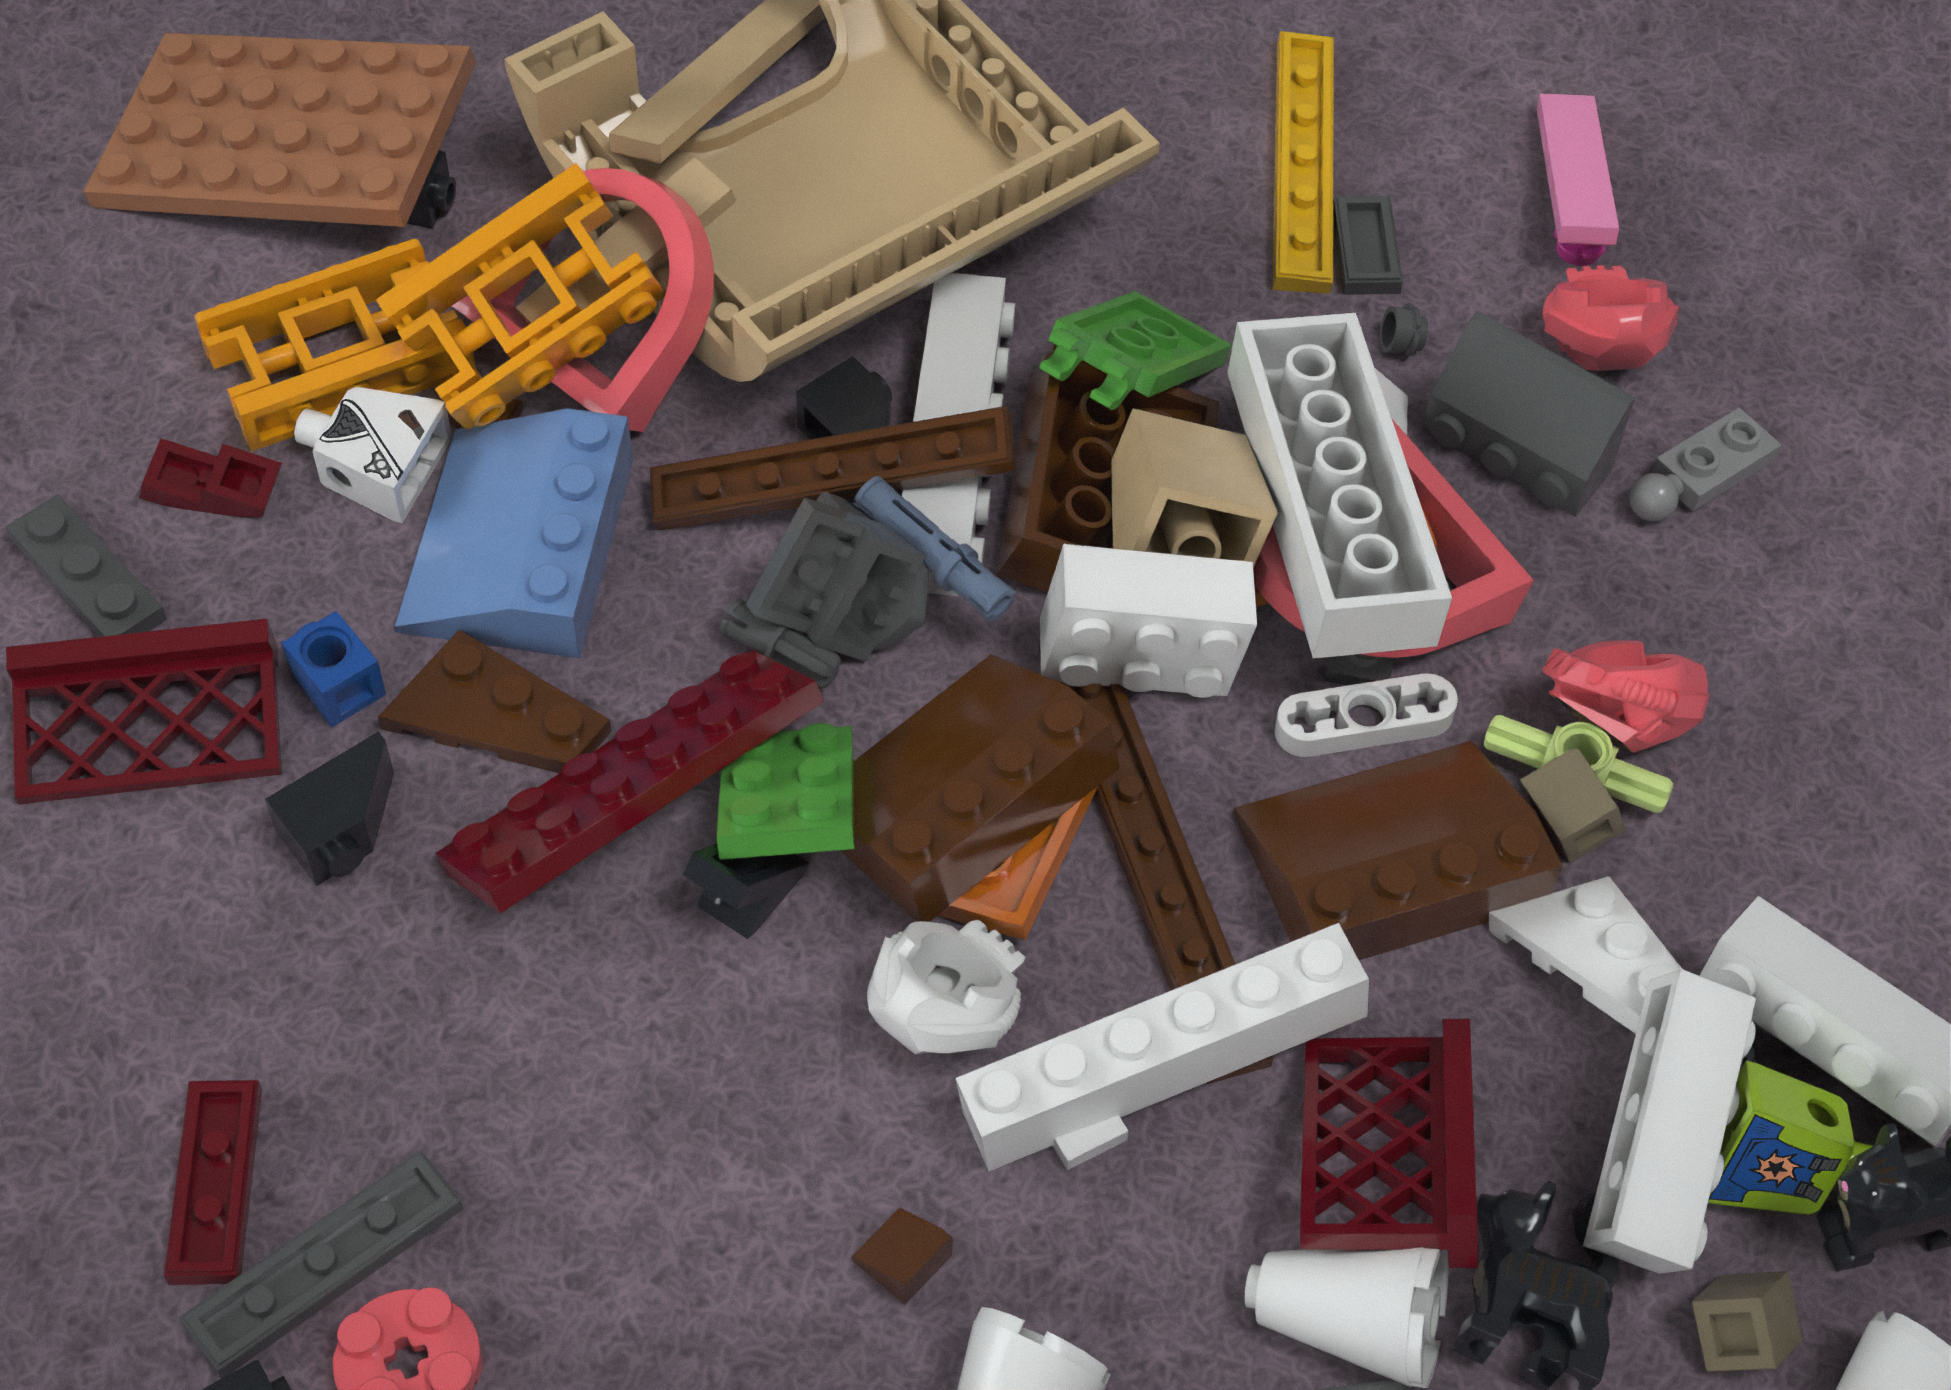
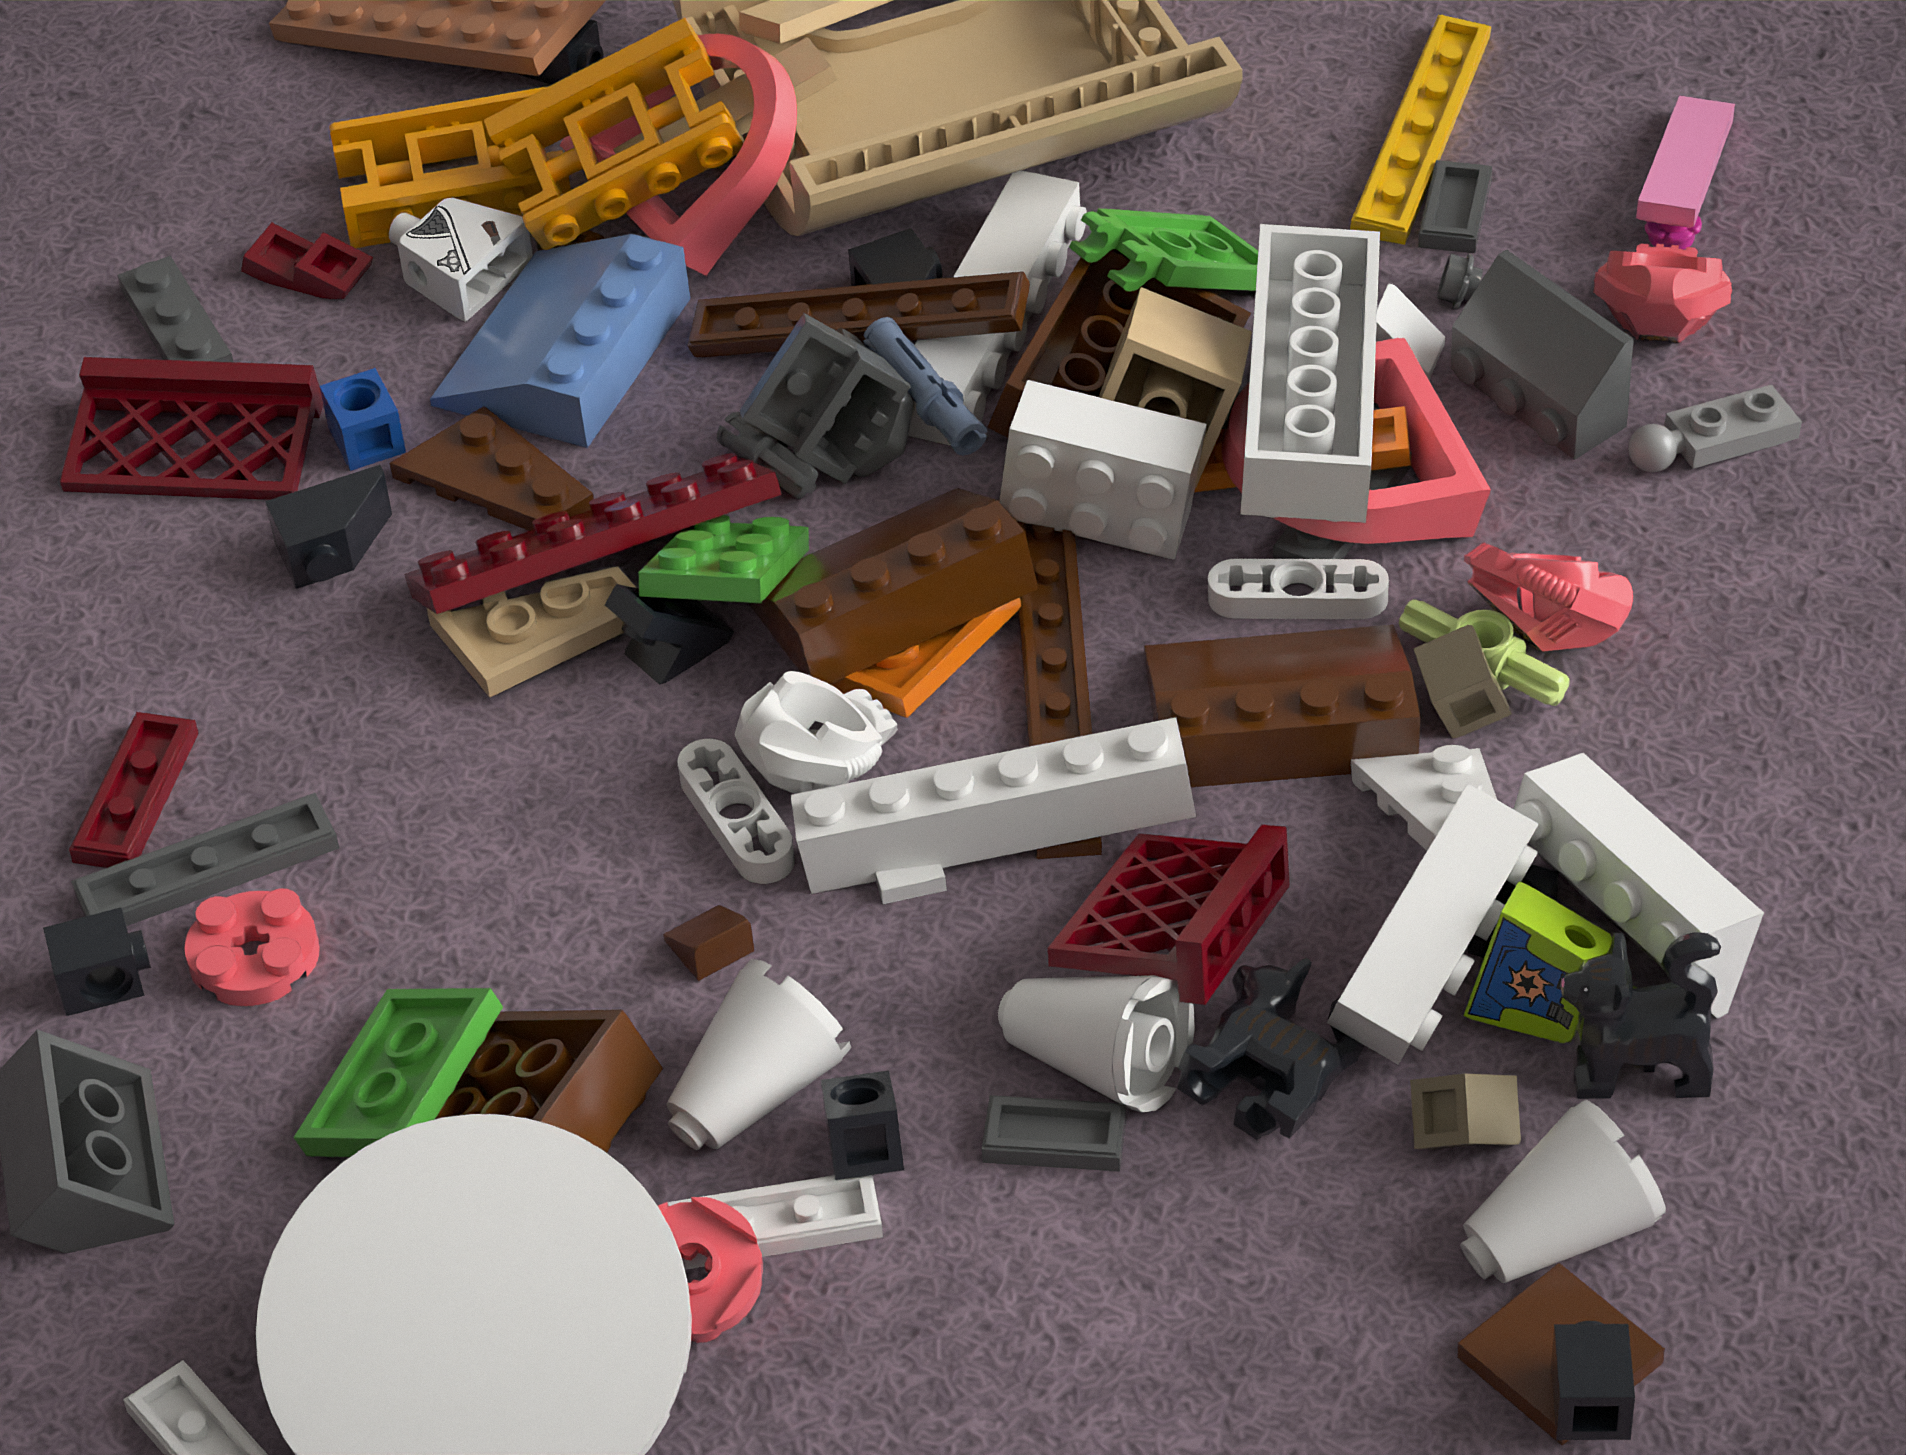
camera: 20 degrees right, 10 degrees down
(603, 899) = (531, 633): none -> tan wing
(927, 1109) = (736, 834): none -> white beam

